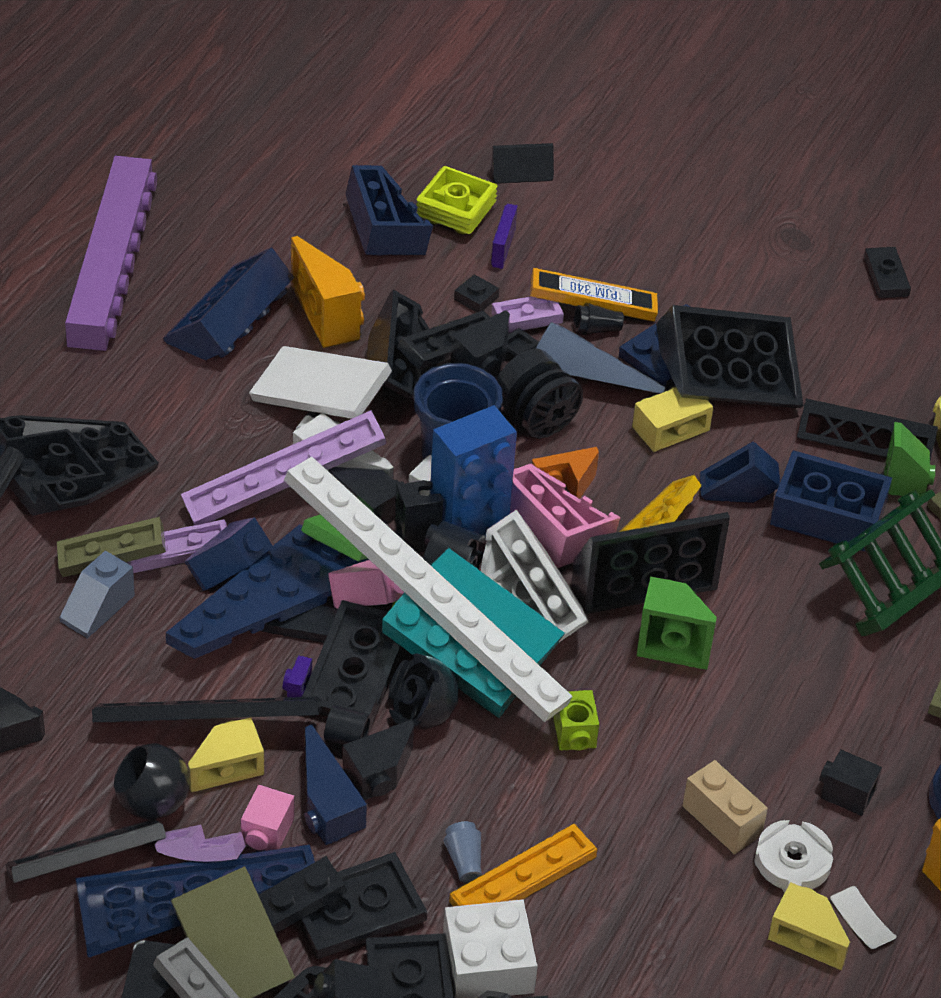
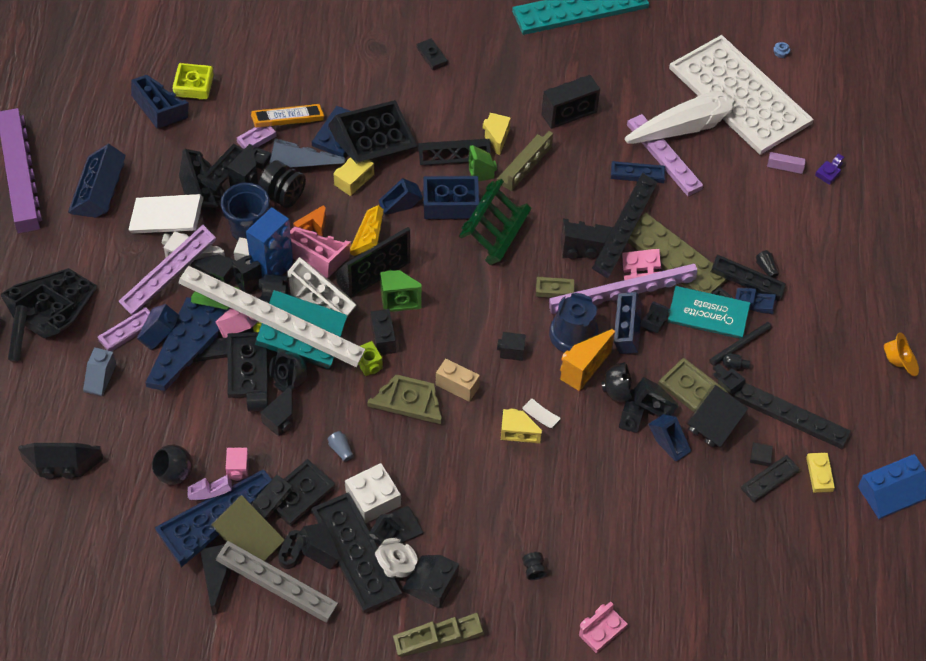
camera: 20 degrees left, 10 degrees up
(85, 850) = (152, 511): black tile -> none
(124, 542) = (101, 339): olive plate -> none
(206, 709) = (182, 416): black tile -> none
(227, 756) = (203, 436): light yellow slope -> none
(296, 679) = (221, 384): dark purple plate -> none
(326, 294) = (147, 160): light orange slope -> none
(332, 800) = (264, 442): dark blue slope -> none
(476, 293) = (224, 133): black plate -> none
(504, 236) = (226, 94): dark purple tile -> none
(522, 163) = (219, 47): black slope -> none
(529, 870) = (374, 446): light orange tile -> none
(596, 319) = (293, 129): black cone -> none
(619, 684) = (383, 331): none -> black brick
(621, 810) = (408, 398): none -> olive wing
(806, 839) = (498, 403): white plate -> none

